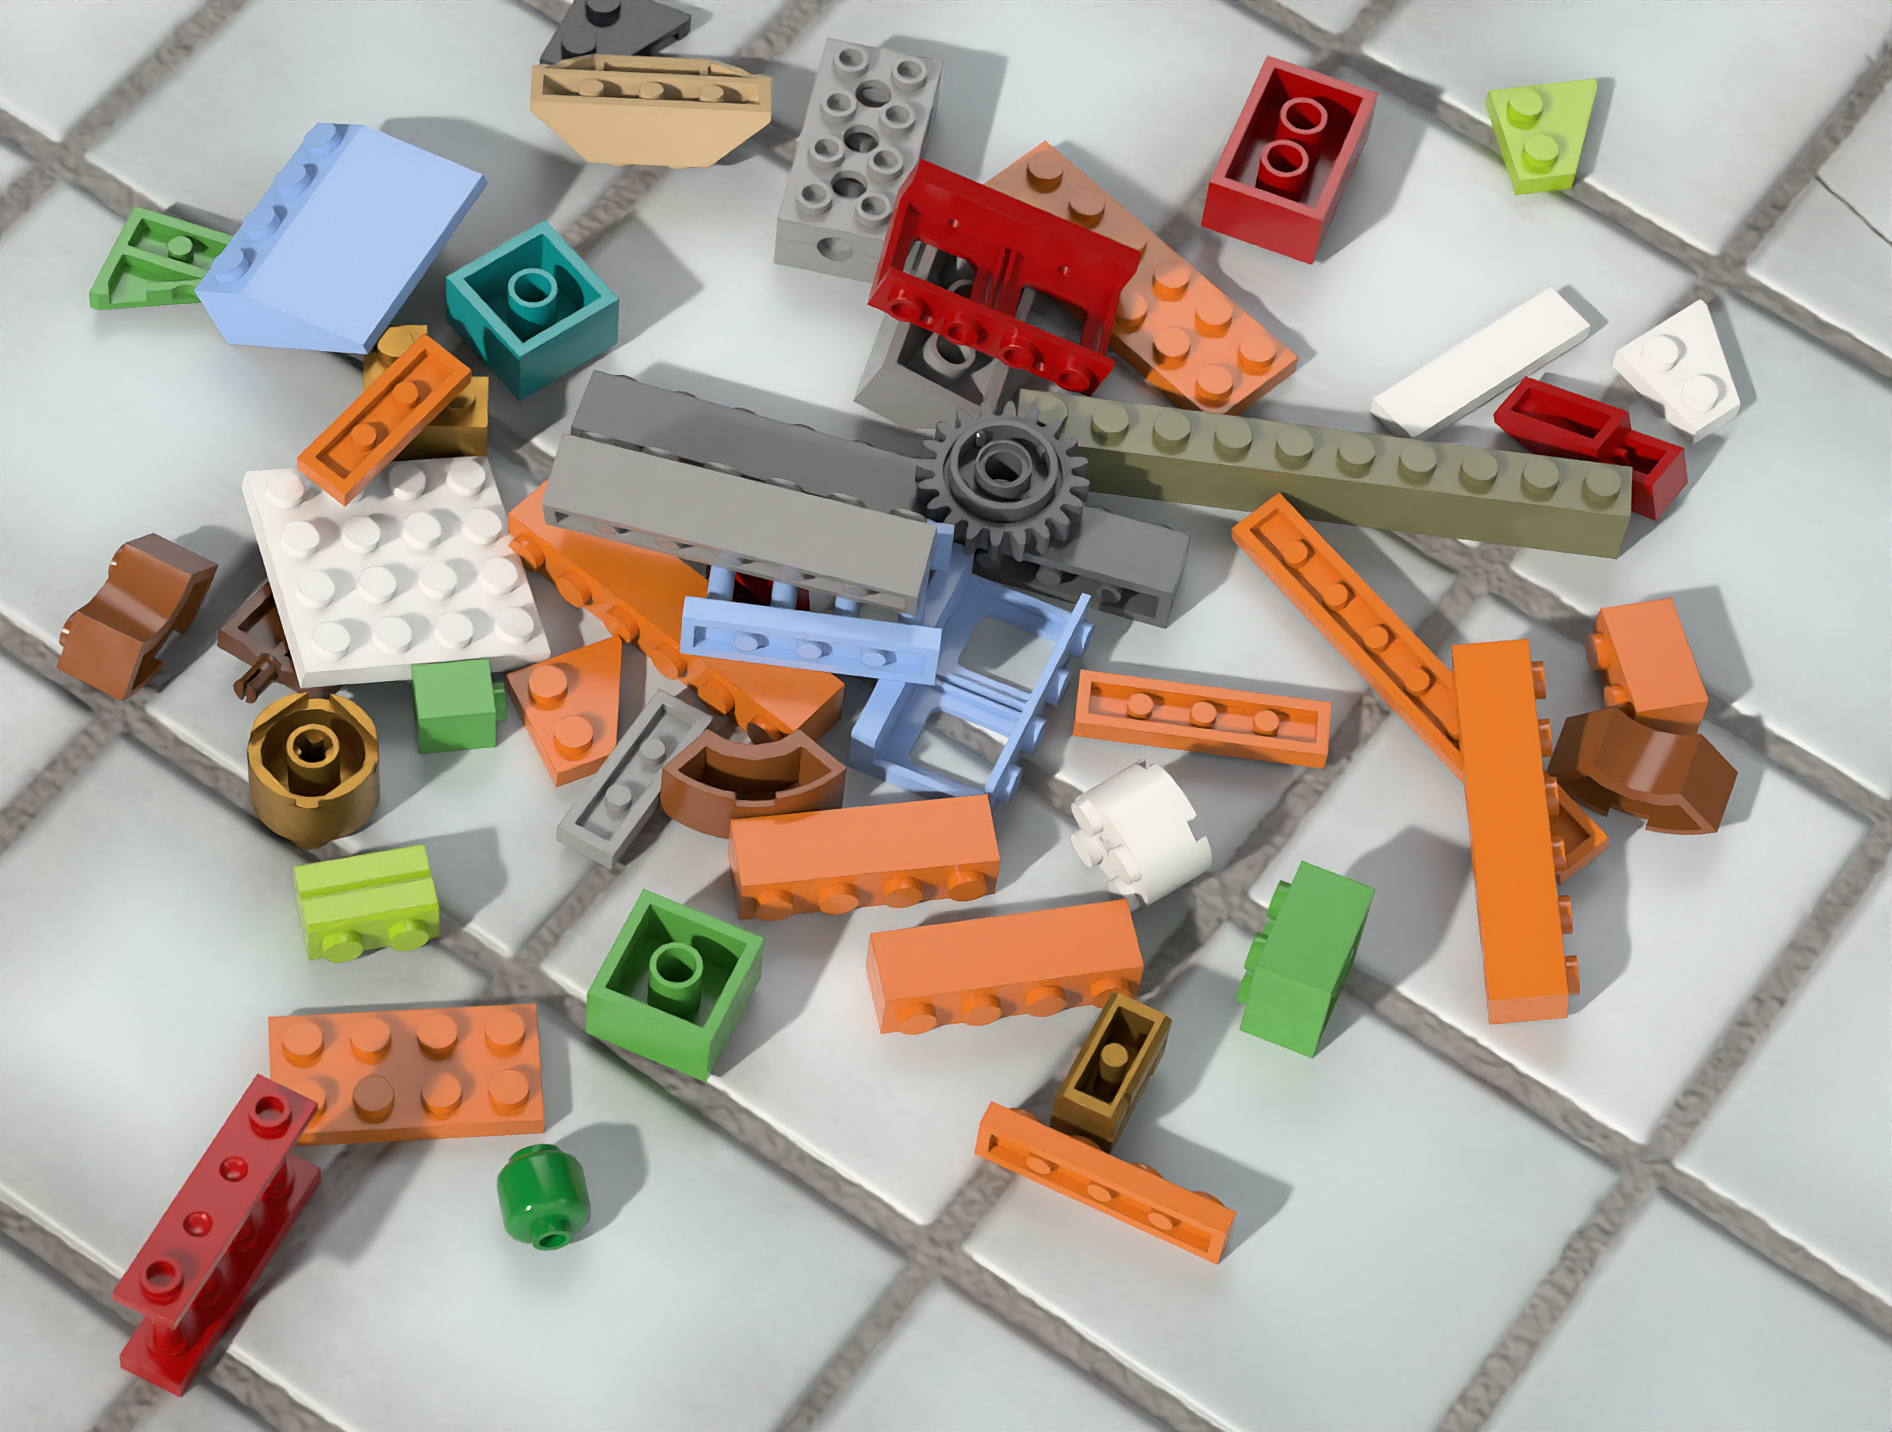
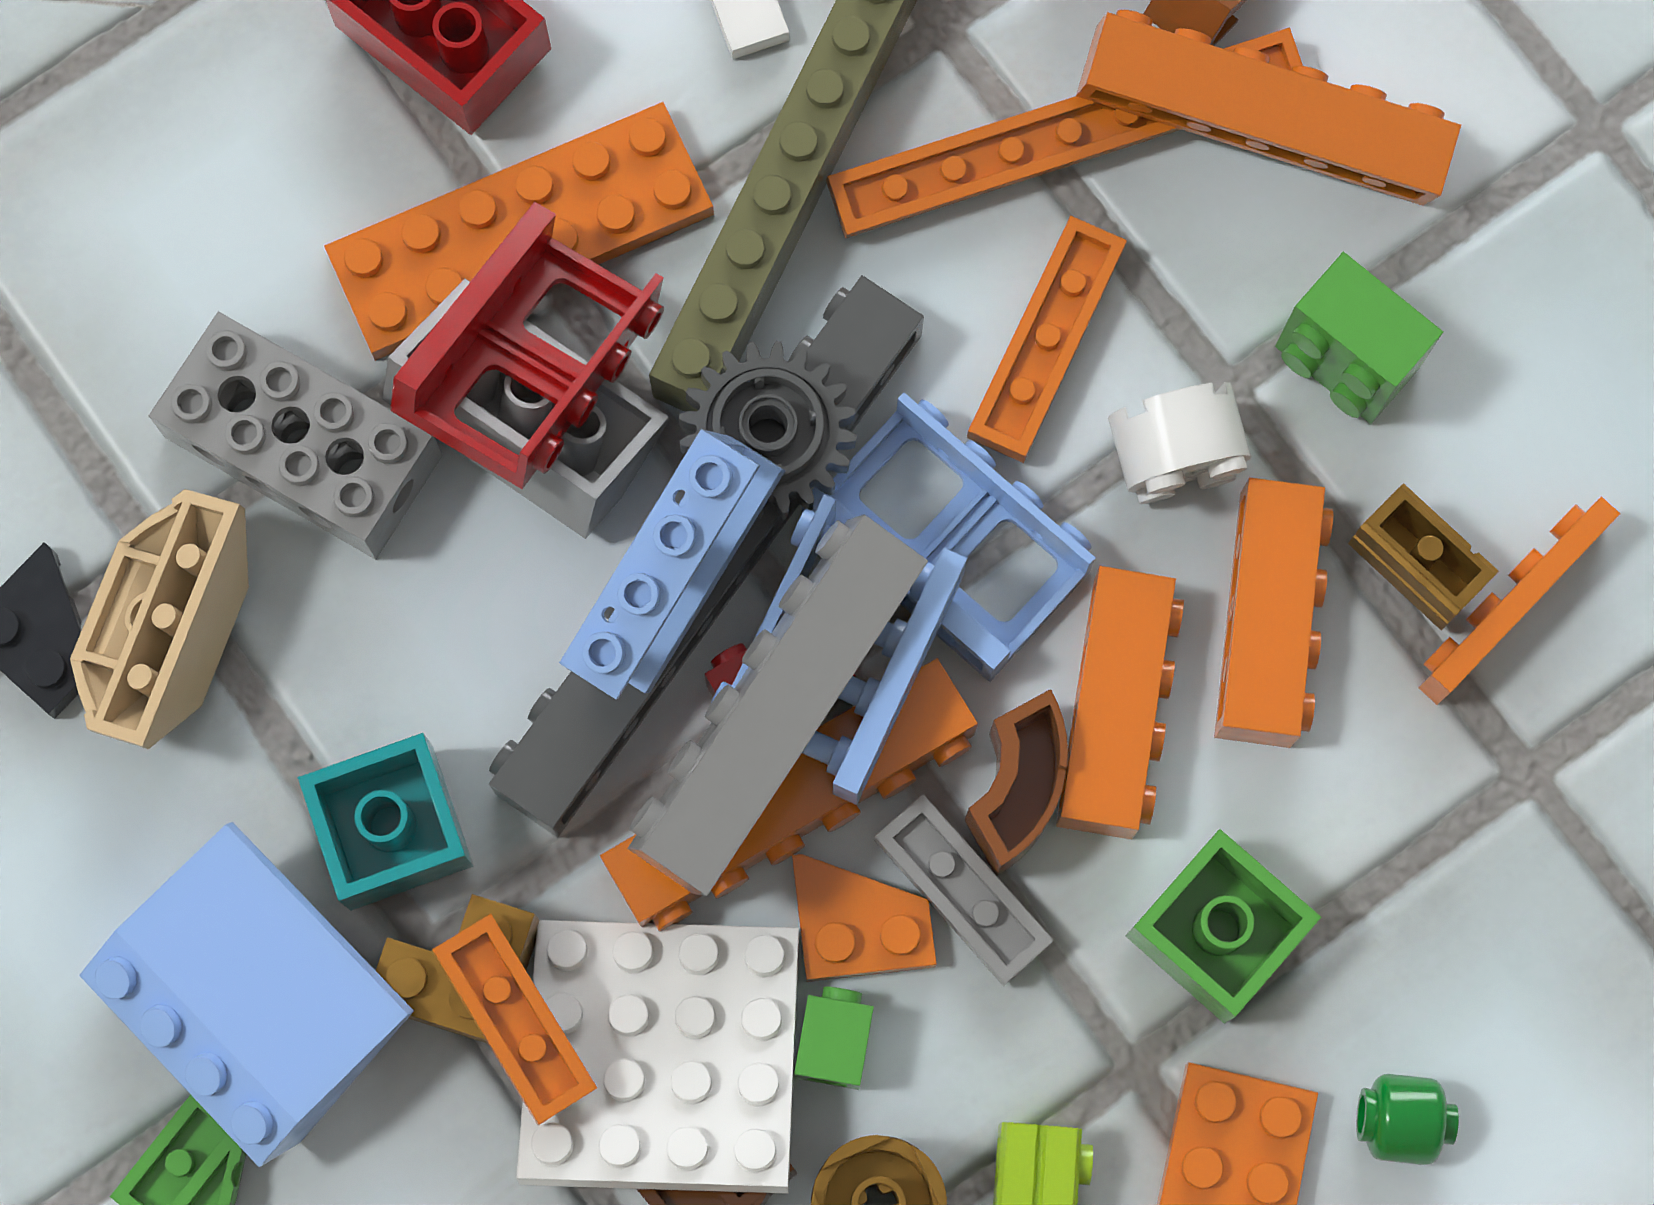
camera: 65 degrees left, 20 degrees up
(843, 425) = (672, 565): none -> light blue window

